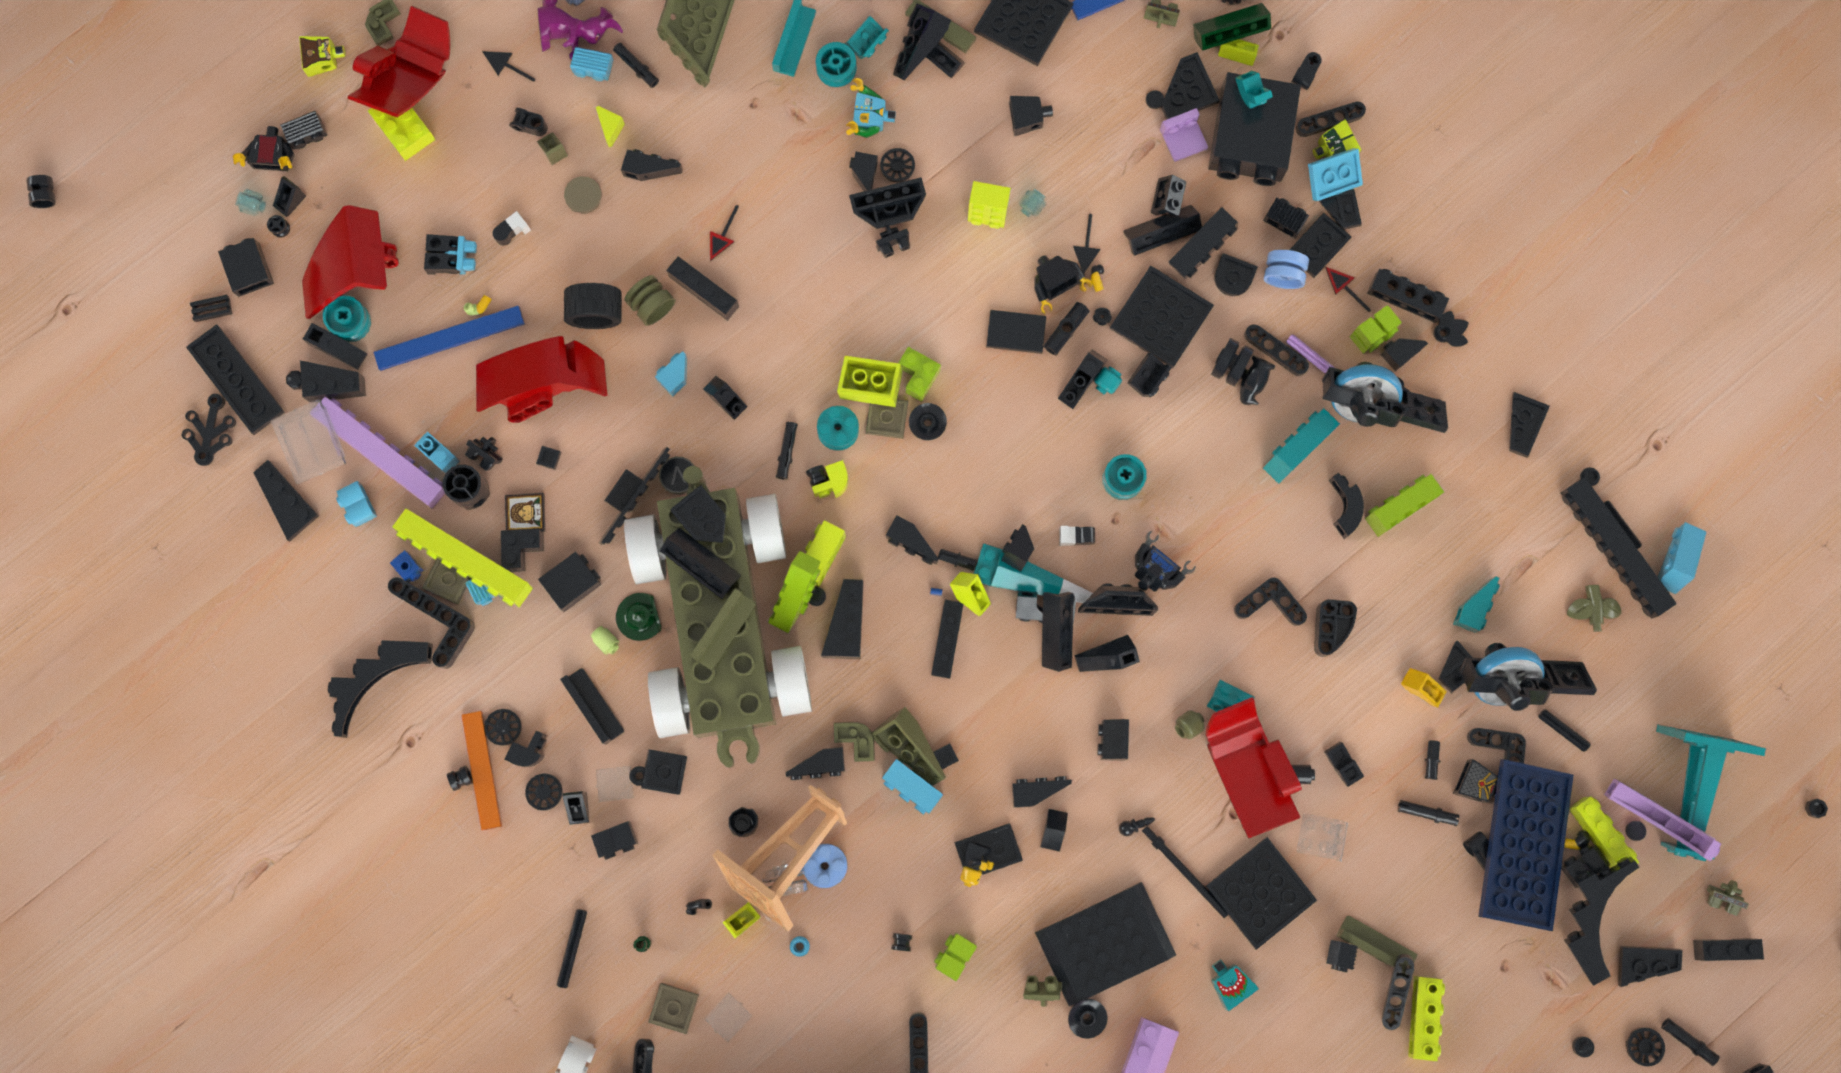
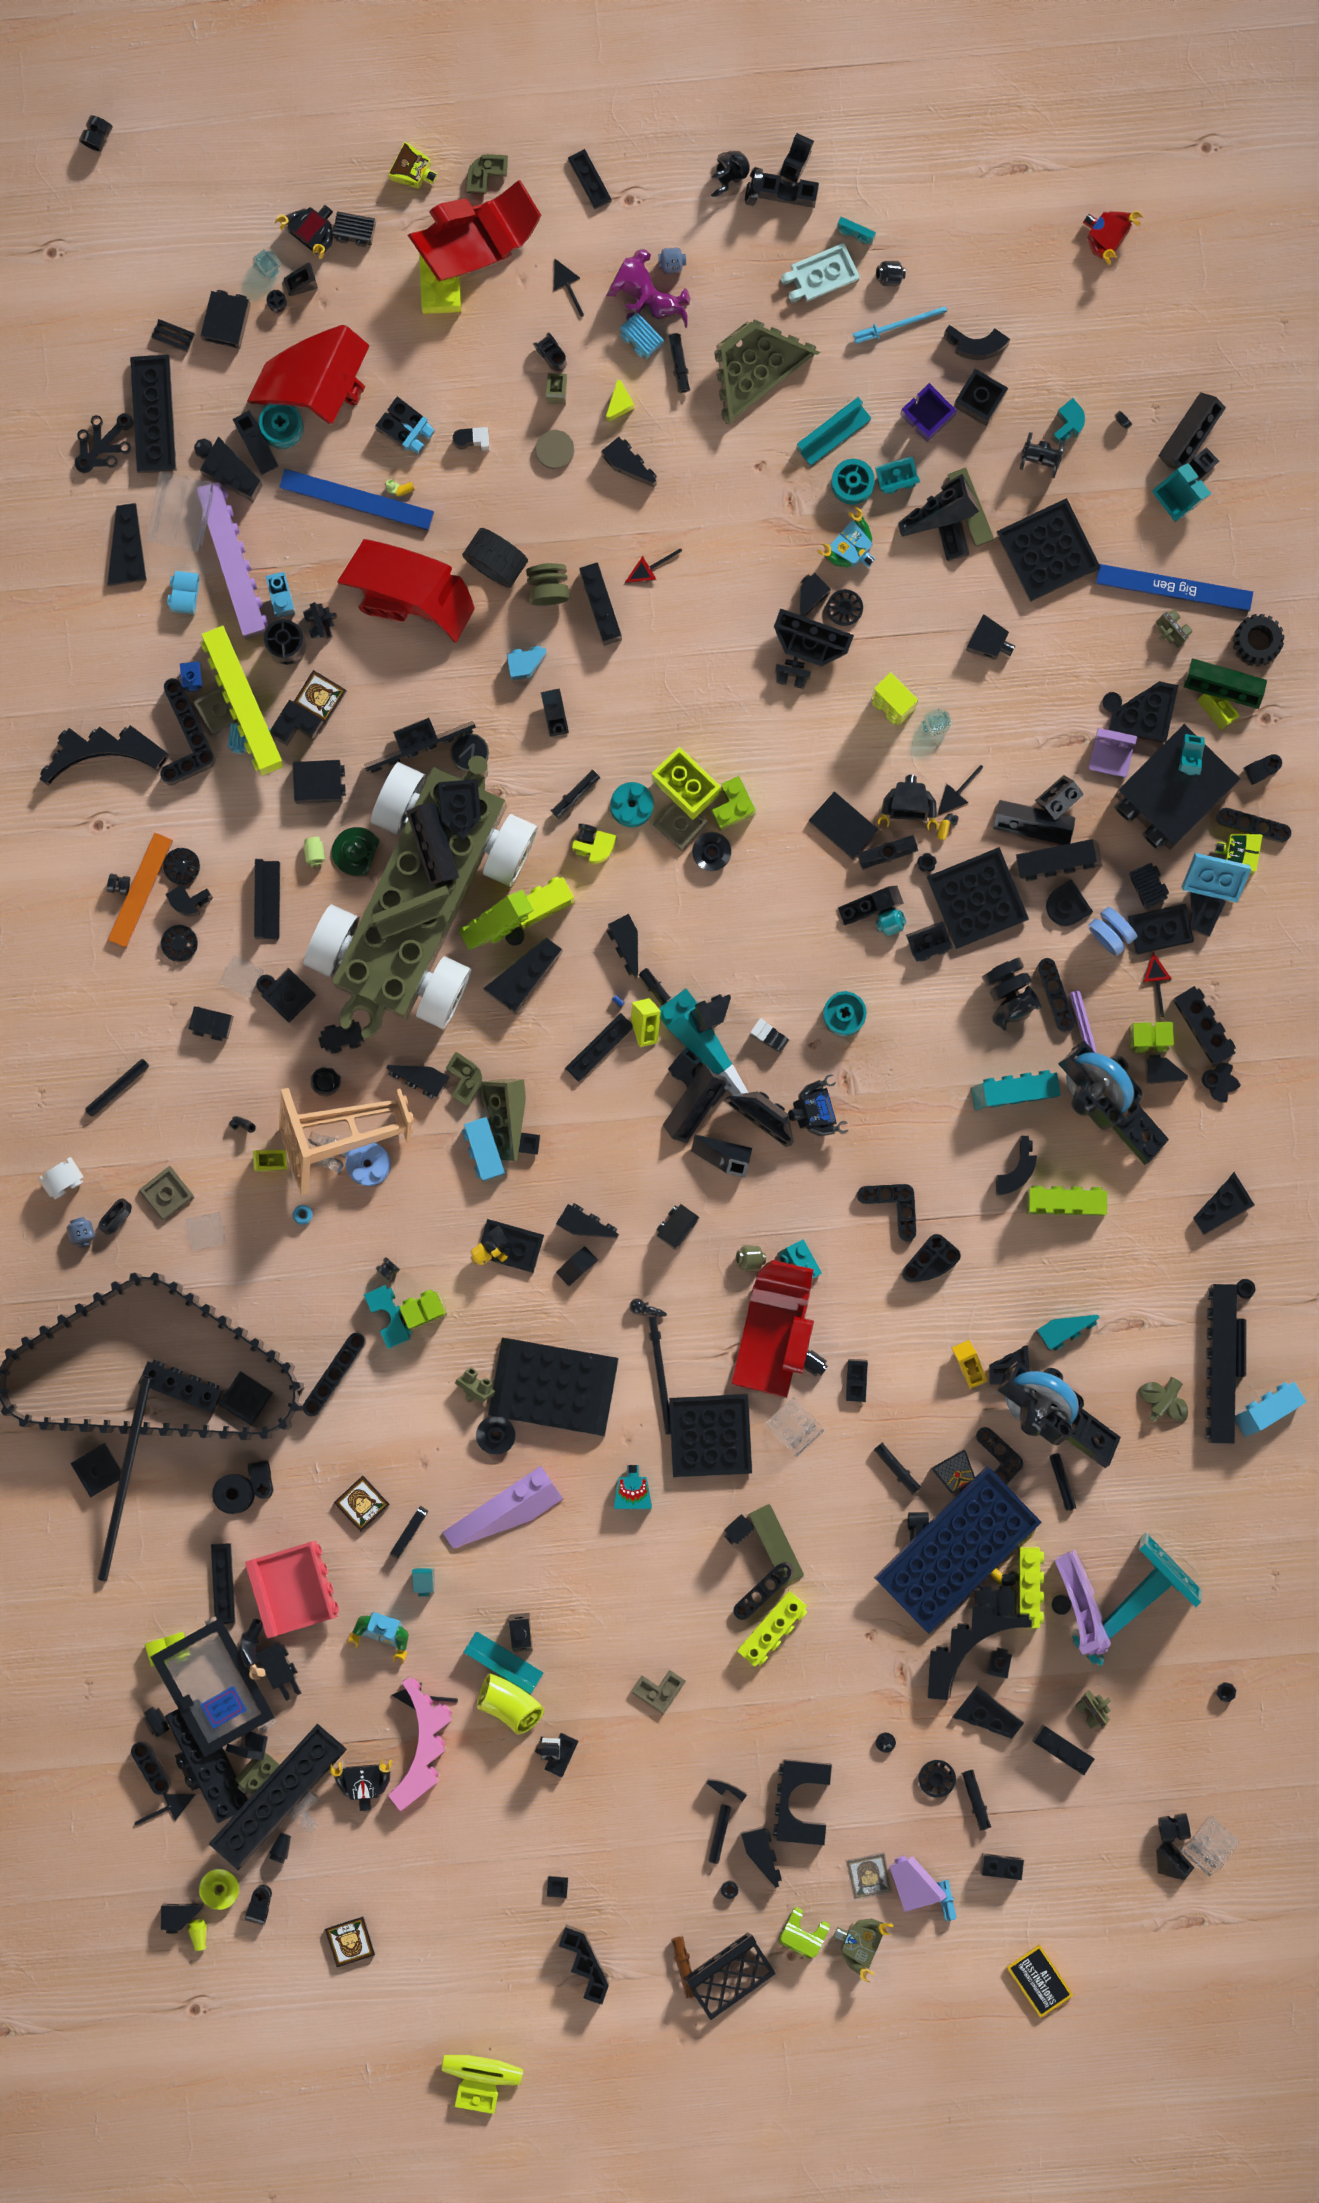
camera: 40 degrees right, 5 degrees up
(548, 457) = (371, 662): black plate -> none
(576, 807) = (197, 974): black slope -> none
(637, 944) = (181, 1124): dark green pin -> none
(728, 779) = (336, 1038): none -> black brick
(915, 971) = (397, 1331): none -> teal arch
(1432, 760) = (933, 1428): black axle -> none
(1618, 912) = (993, 1668): none -> black brick

